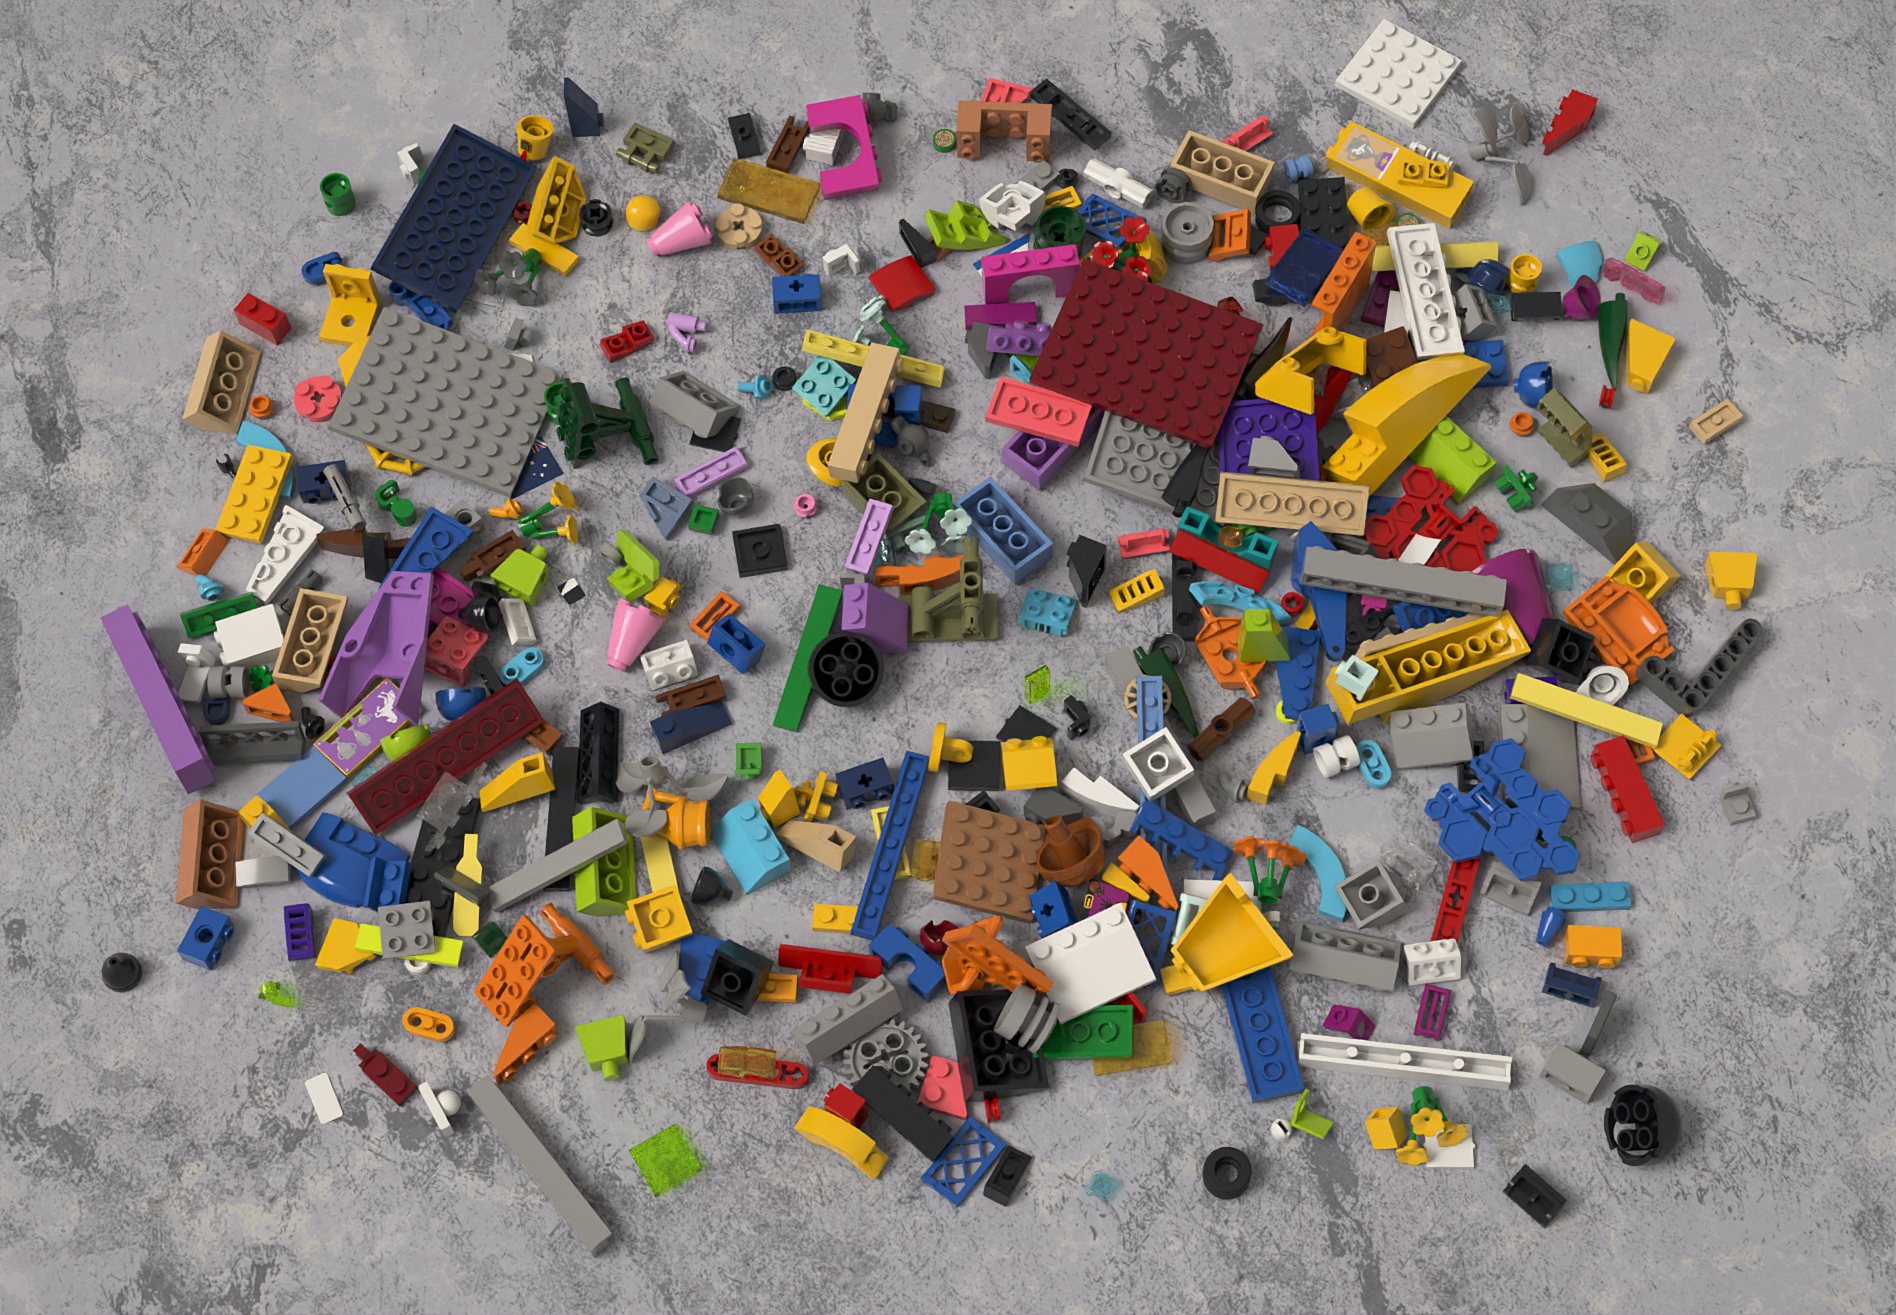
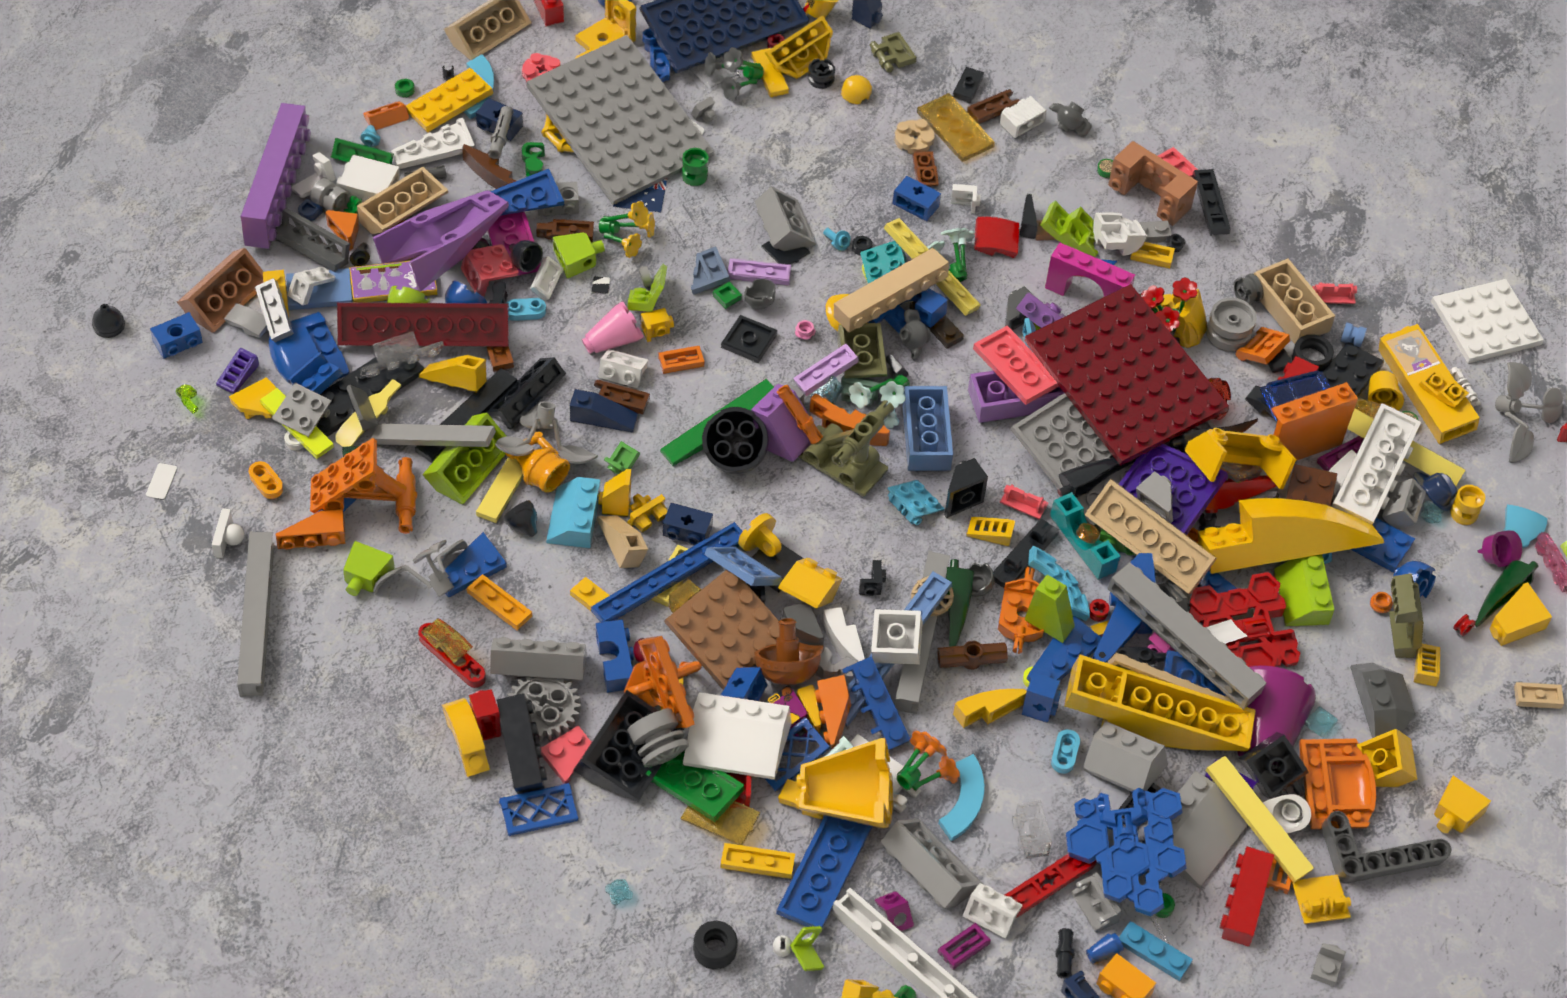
camera: 30 degrees right, 10 degrees down
(195, 510) = (404, 88): none -> green tile
(261, 406) = (501, 53): orange plate -> none
(291, 791) = (304, 282): none -> white bracket
(375, 556) = (492, 176): black slope -> none
(385, 1075) = (211, 491): dark red hinge -> none
(481, 588) = (546, 247): black tile -> none
(511, 509) = (603, 209): light orange plate -> none
(581, 427) = (689, 189): dark green plate -> none
(629, 341) = (777, 160): red slope -> none
(658, 919) = (470, 514): yellow plate -> none
(665, 1160) = (340, 667): clear neon green tile -> none
(681, 231) = (871, 113): bright pink cone -> none
(685, 323) = (824, 171): lavender plant -> none
(736, 643) = (678, 381): blue brick -> none
(736, 976) = (488, 581): black slope -> none
(828, 968) = (556, 621): red bracket -> none
(848, 115) = (1028, 151): dark pink arch -> none
(896, 605) = (804, 421): none -> orange pin
(957, 791) = (743, 566): none -> medium blue tile
(992, 1109) = (587, 788): red bush -> none
(1000, 314) = (1048, 294): magenta tile -> none
(1006, 1176) = (559, 839): black slope -> none
(1024, 726) = (836, 561): black piece -> none
(1037, 684) = (862, 538): clear neon green tile -> none
(1060, 227) = (1139, 261): dark green wheel -> none
(1086, 210) = (1175, 270): blue window -> none
(1118, 183) = (1209, 266): white piece -> none
(1197, 1066) = (757, 860): none -> yellow plate
(1219, 560) = (1067, 545): red tile -> none
(1236, 788) = (948, 698): light grey plate -> none
(1336, 756) = (1033, 725): white wheel -> none
(1356, 676) = (1090, 669): light aqua brick -> none
(1372, 896) = (985, 835): light grey slope -> none
(1521, 497) = (1342, 640): green hips -> none
(1521, 955) = (1065, 953): none -> black pin
(1535, 305) = (1460, 530): black hinge -> none

